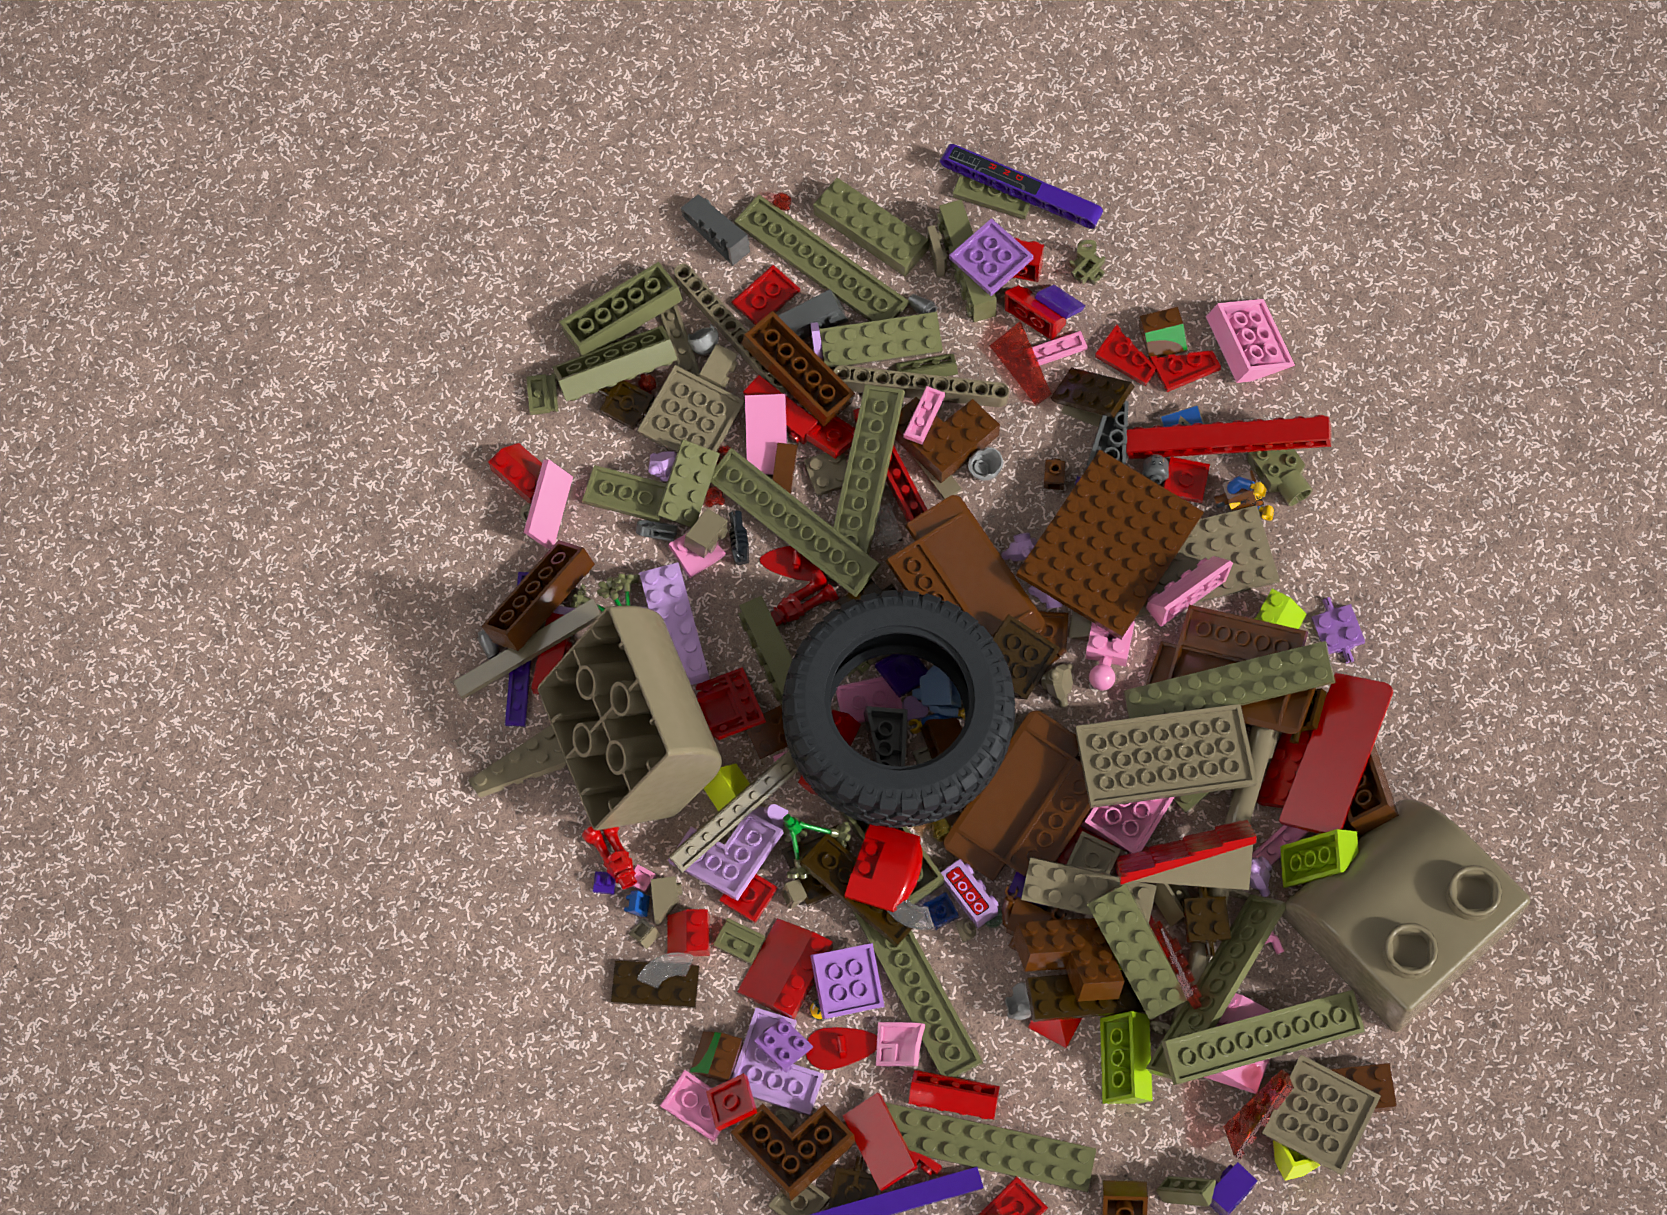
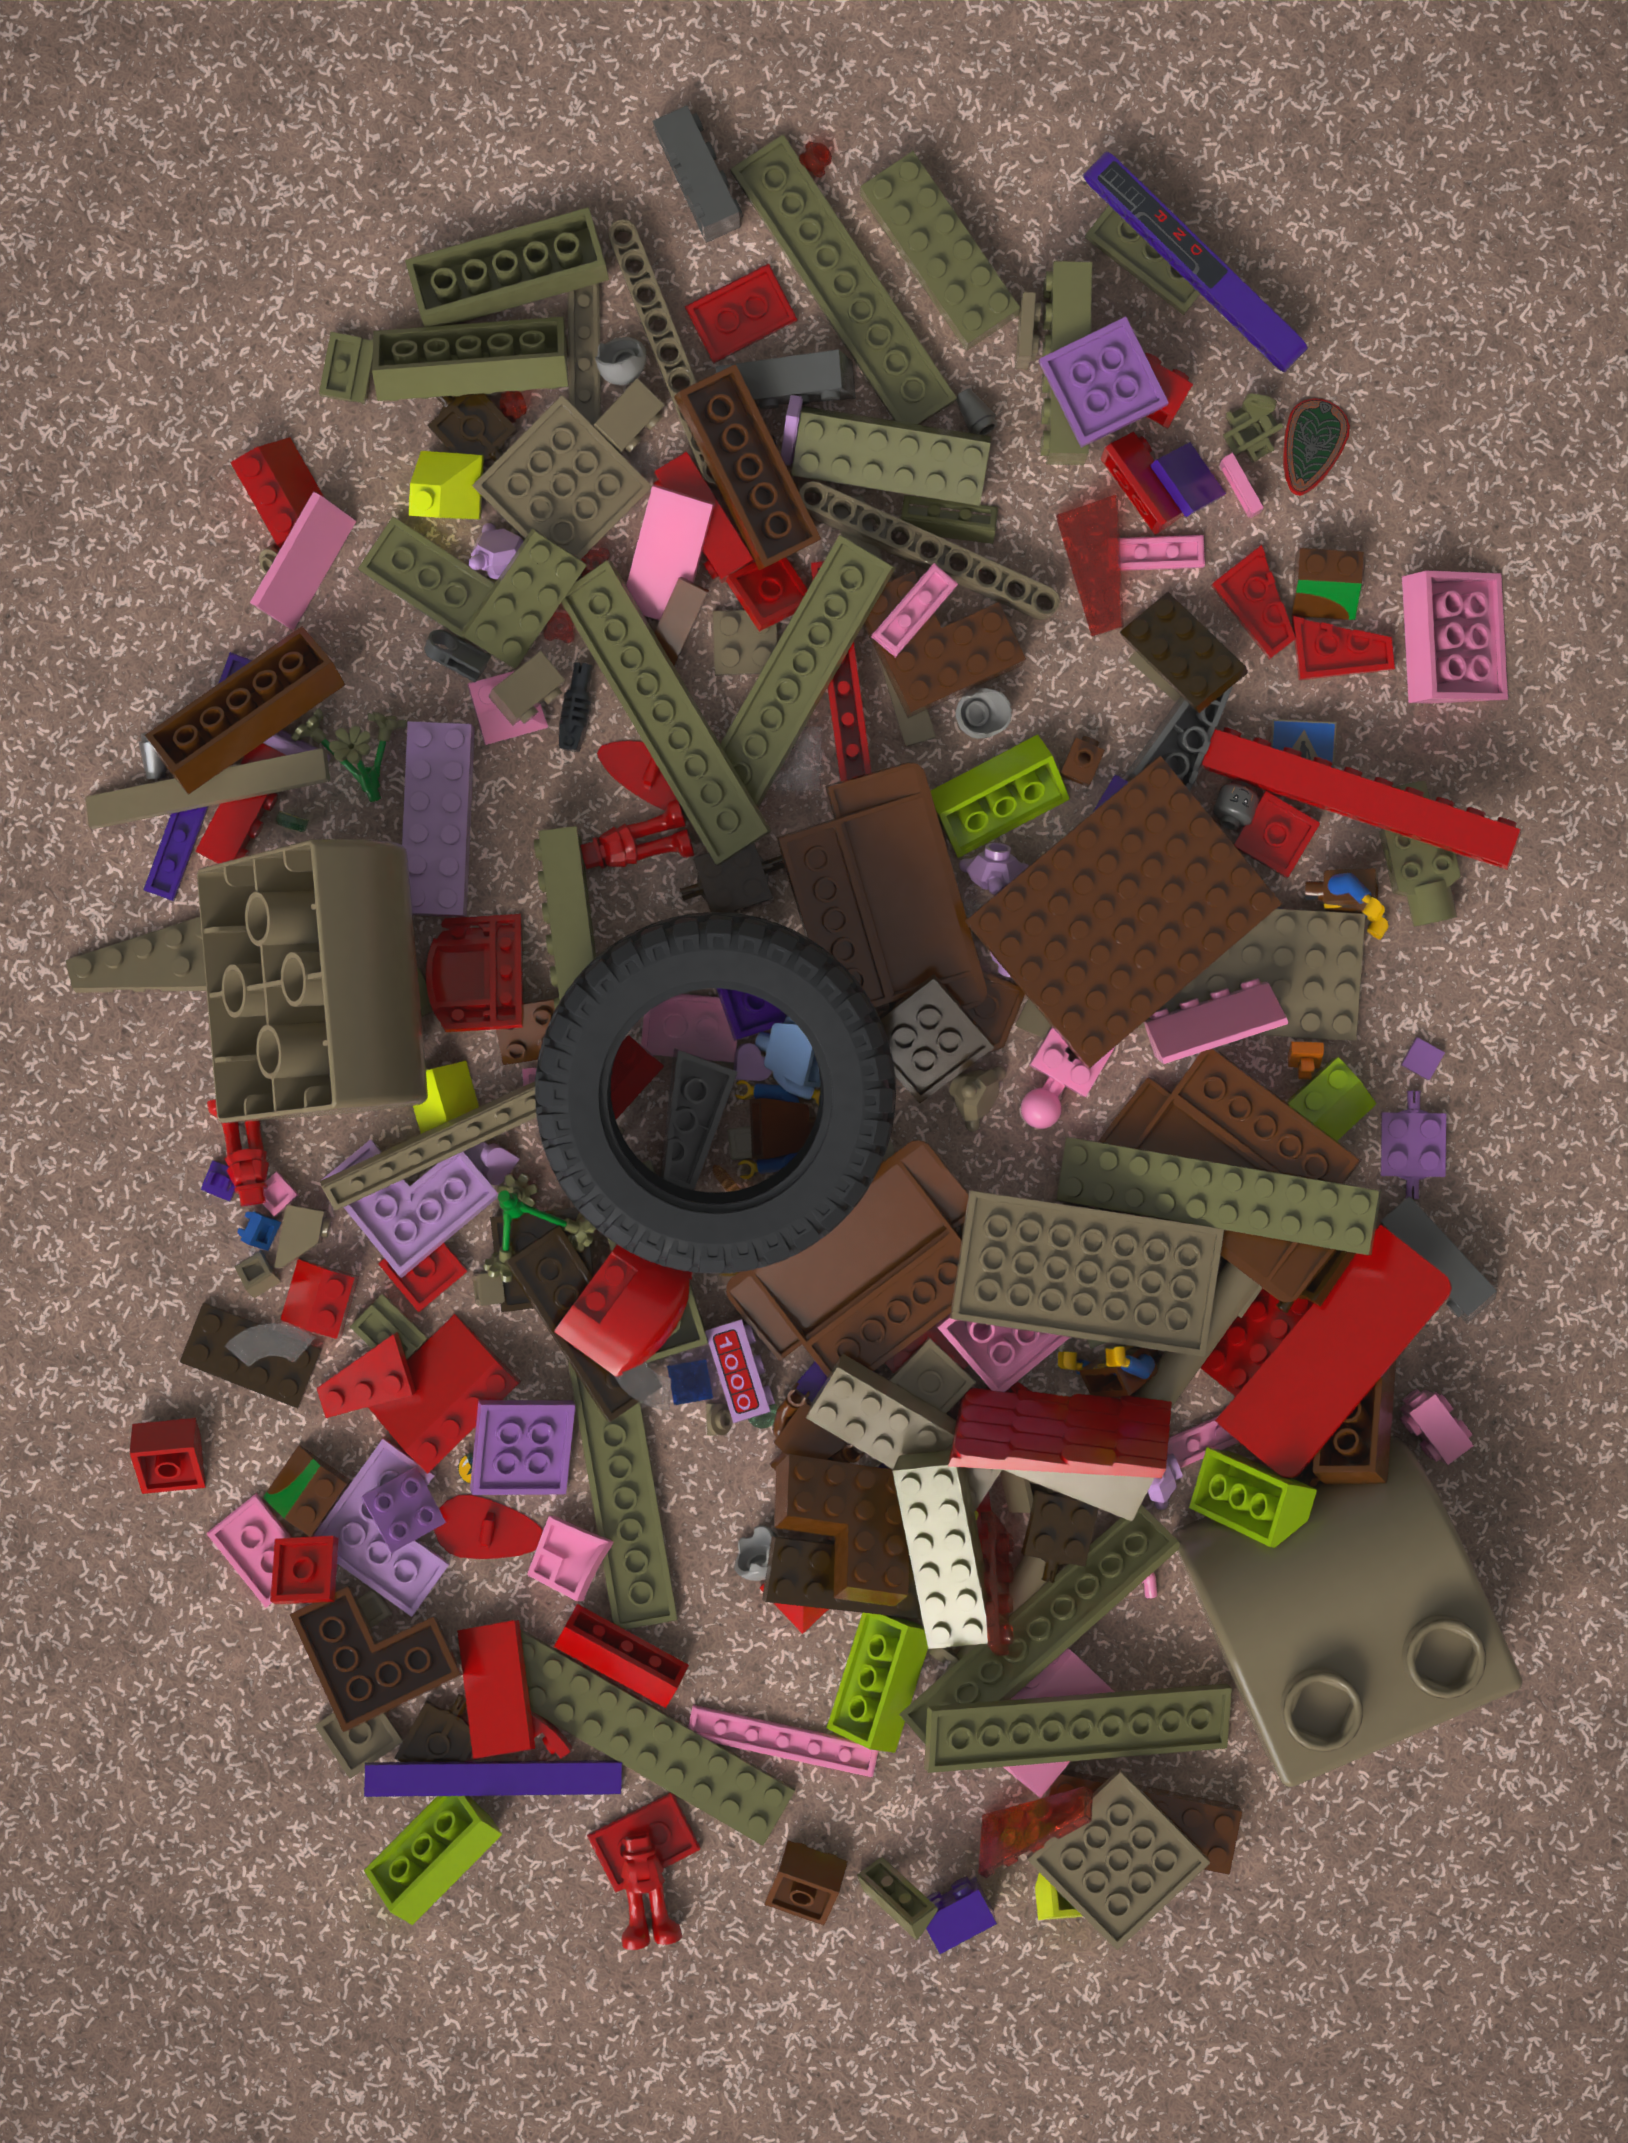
camera: 10 degrees right, 20 degrees up
(620, 438) = (444, 485): none -> neon yellow slope
(621, 1063) = (167, 1455): none -> red slope
(736, 973) = (369, 1381): none -> red wing
(1013, 507) = (999, 795): none -> lime slope
(1079, 1120) = (783, 1741): none -> bright pink tile
(1092, 297) = (1241, 485): none -> bright pink tile
(1125, 261) = (1313, 443): none -> shield
(1205, 816) = (1114, 1373): none -> torso
(1252, 598) = (1305, 1057): none -> orange tile
(1324, 579) = (1422, 1058): none -> medium lavender tile
(1407, 698) = (1470, 1289): none -> dark grey wedge
(1416, 784) = (1429, 1417): none -> bright pink brick

